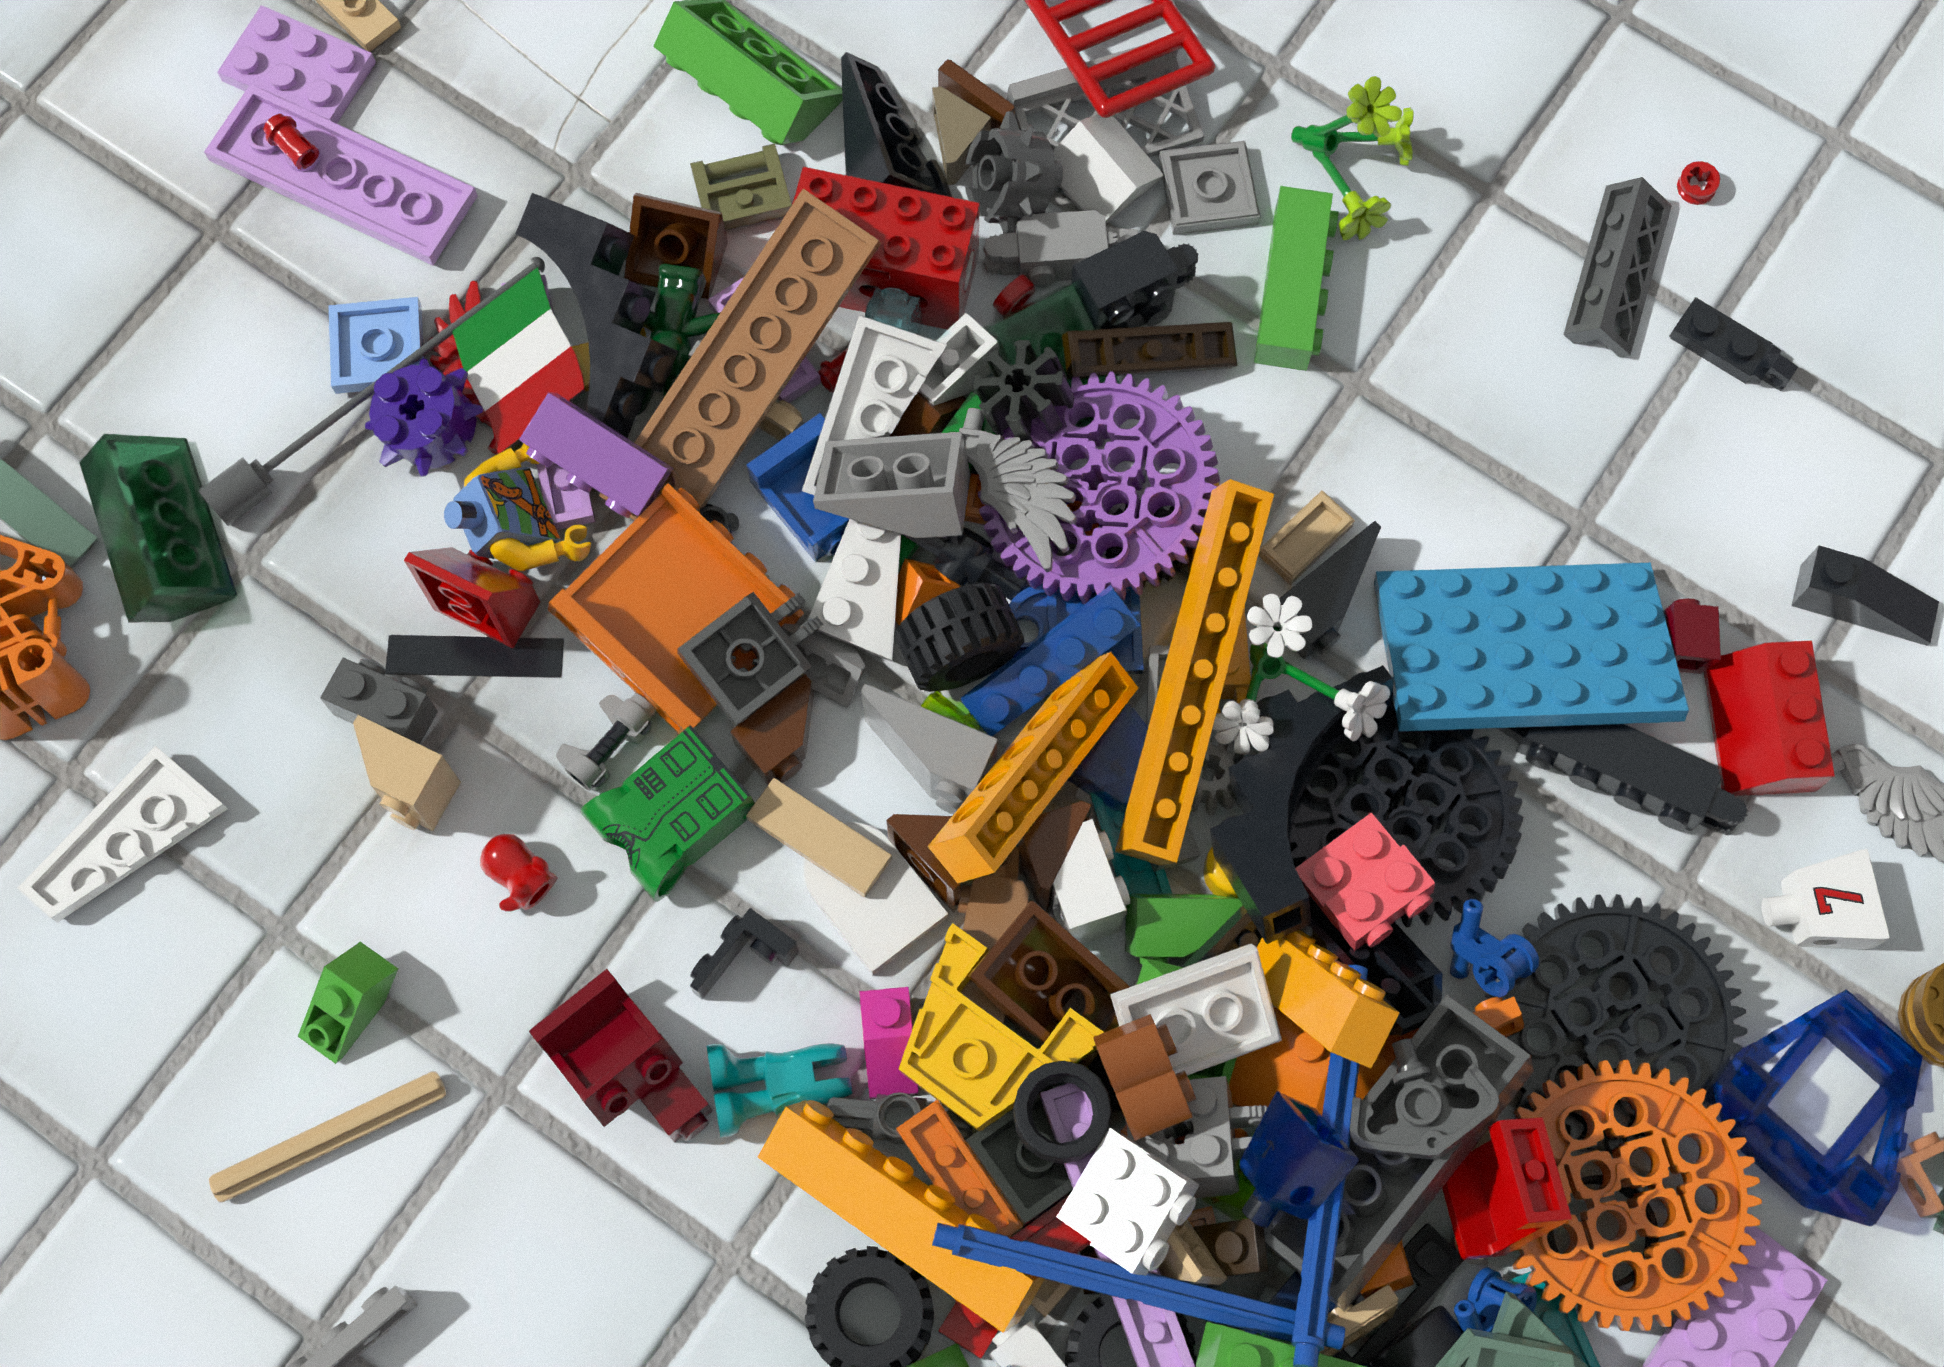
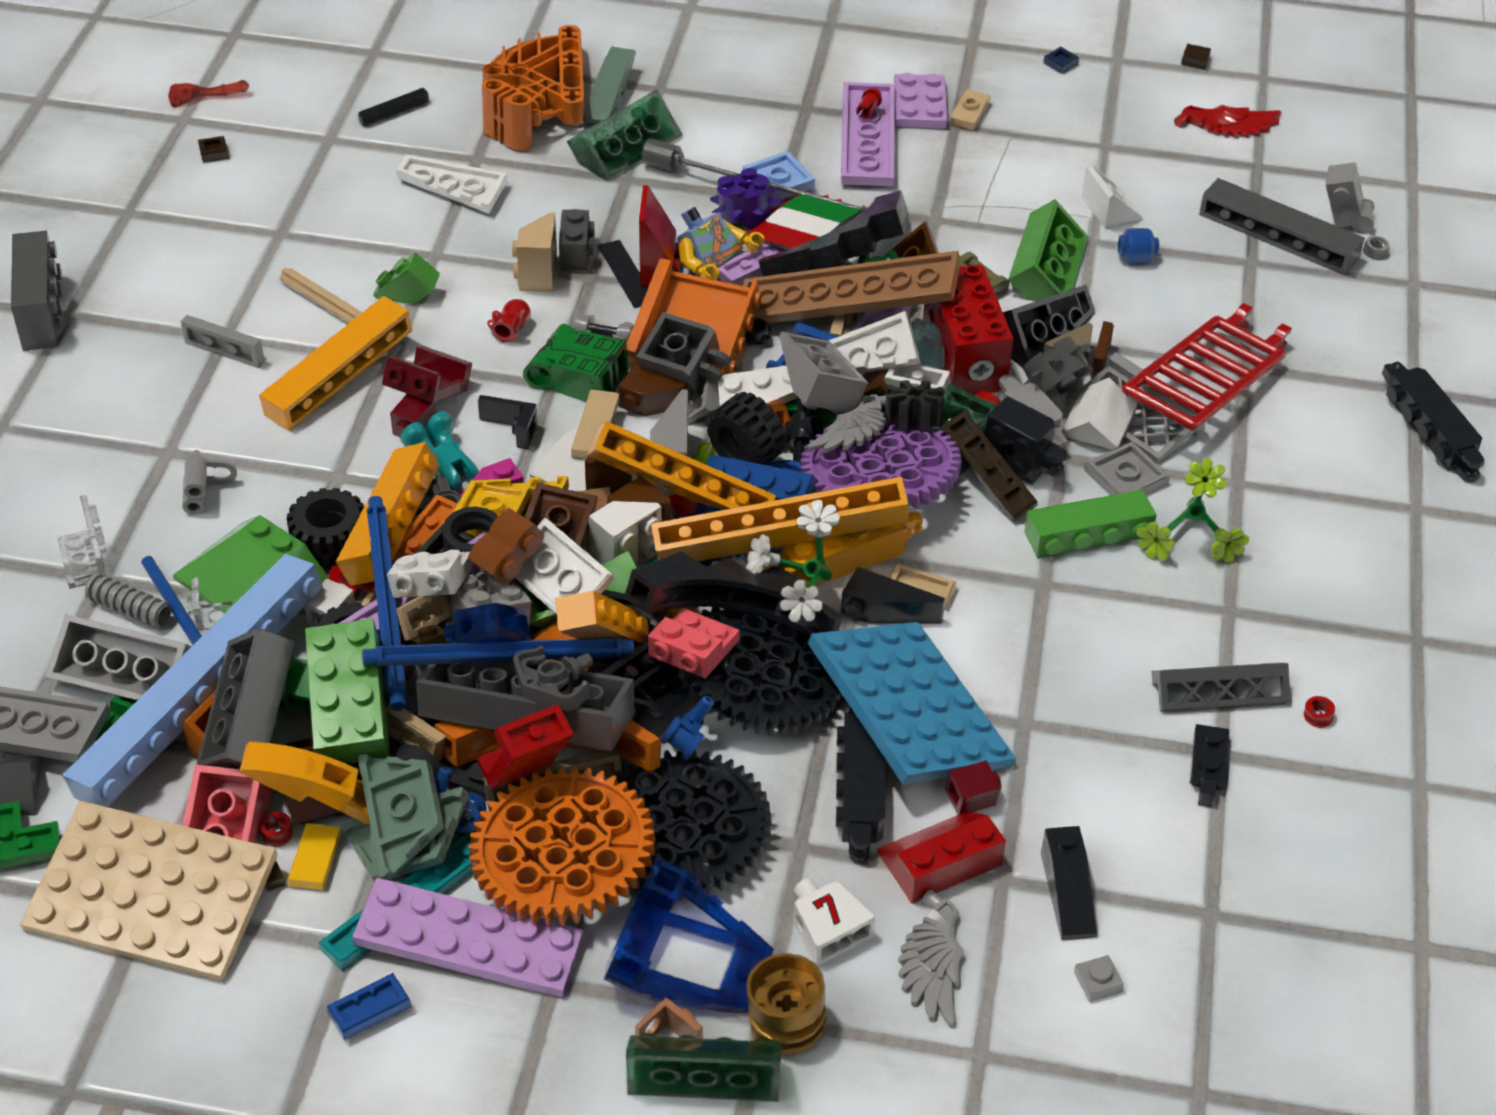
camera: 65 degrees right, 25 degrees down
(497, 1179) = (335, 363): none -> light orange brick
(594, 455) = (760, 252): medium lavender brick -> none

